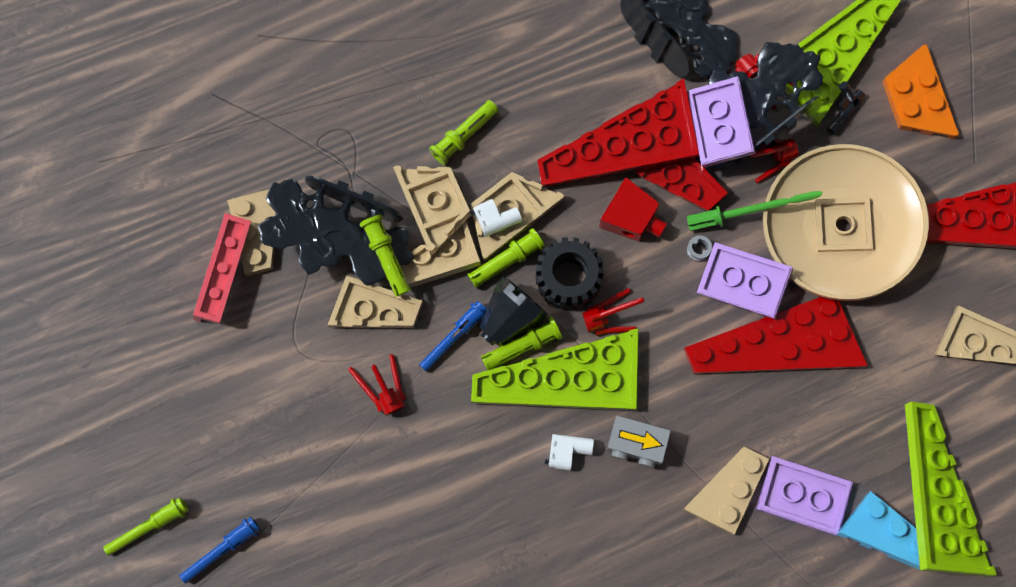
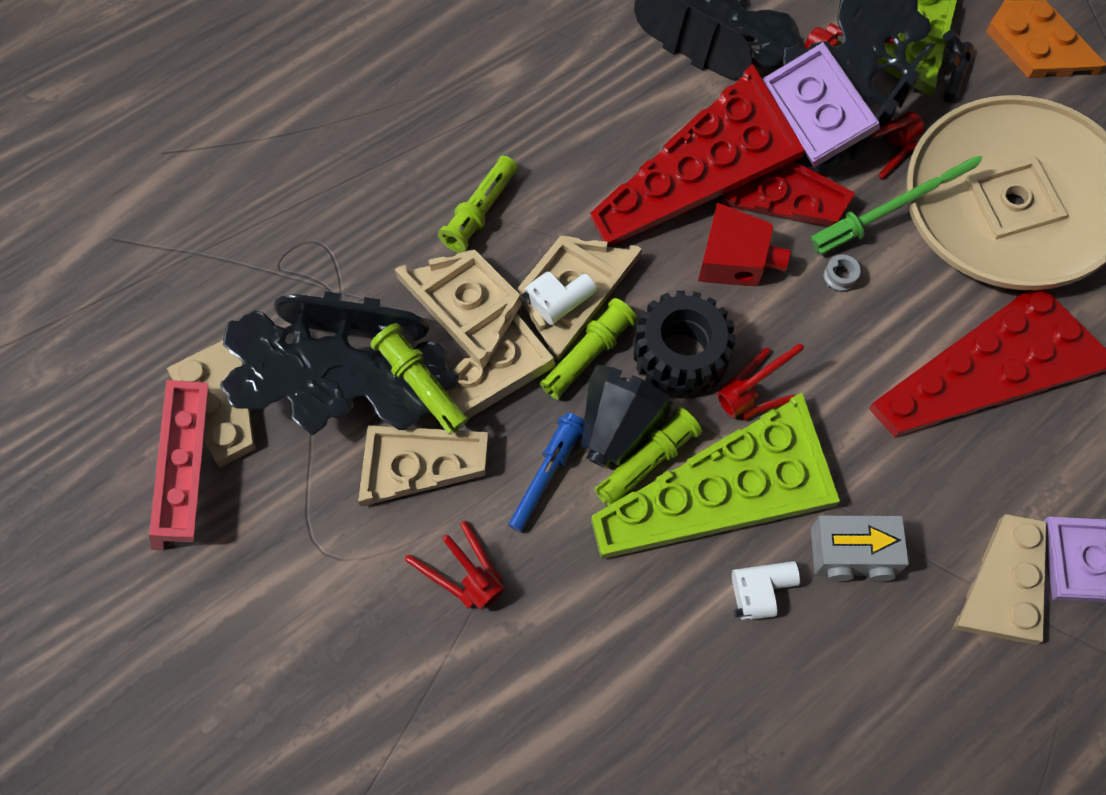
camera: 20 degrees left, 10 degrees down
(745, 280) = (921, 295): lavender tile -> none

